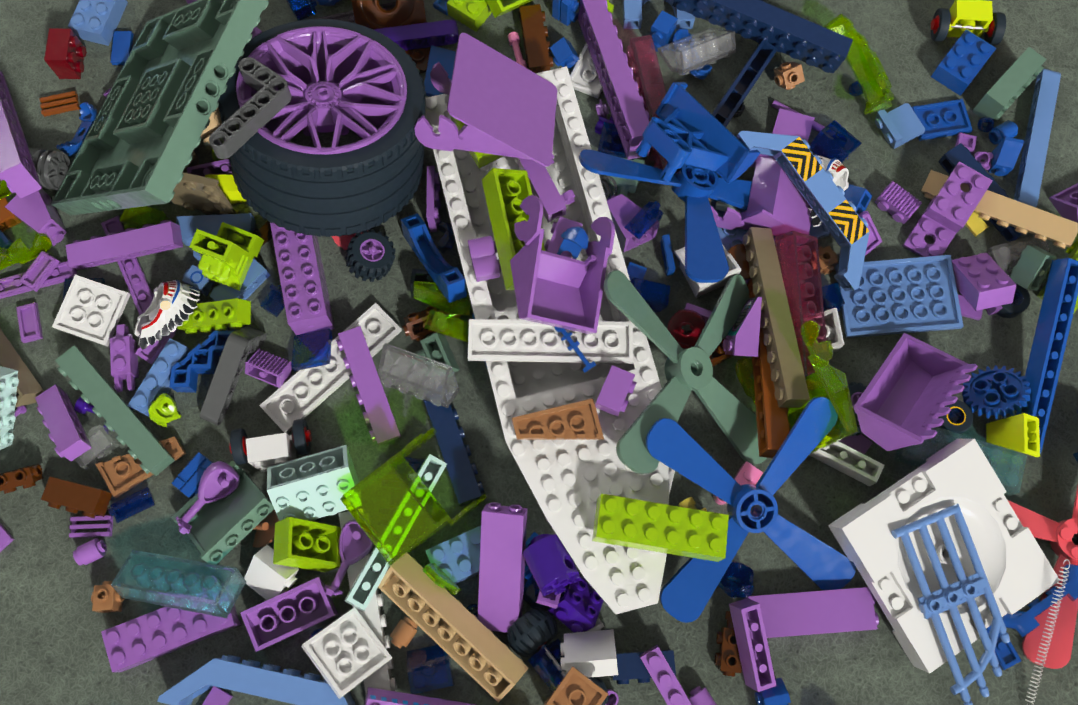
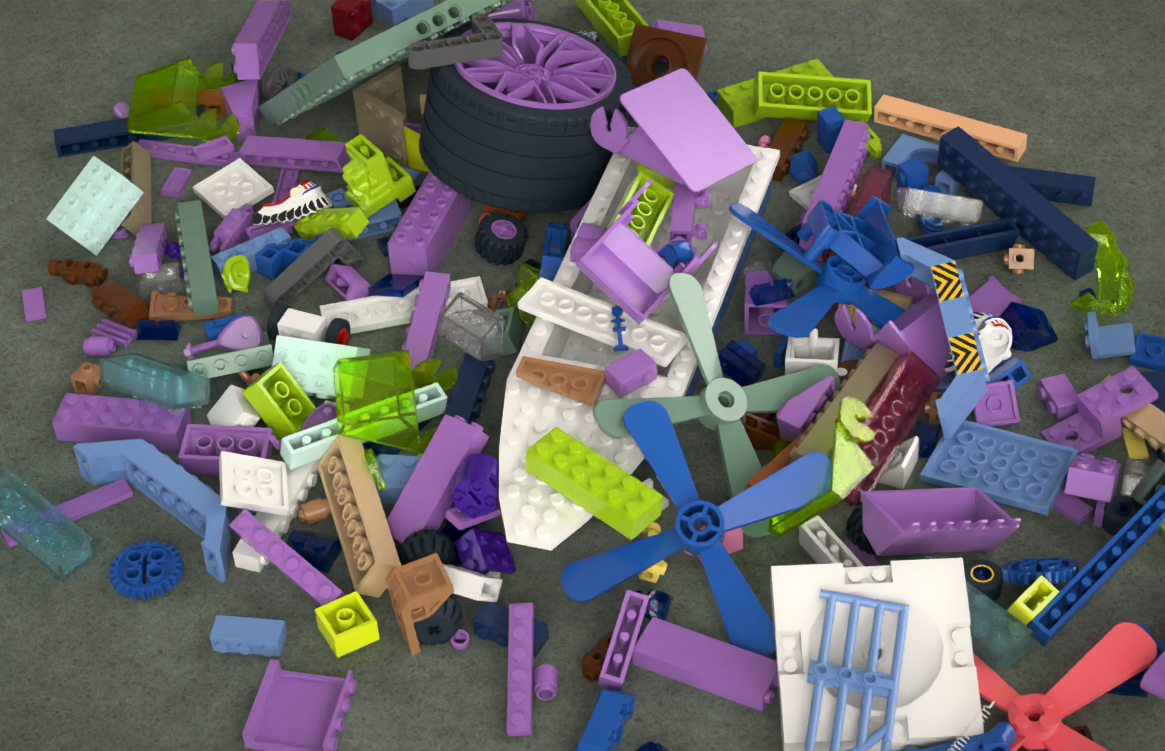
camera: 35 degrees right, 30 degrees down
(59, 100) = (320, 49): dark orange tile -> none

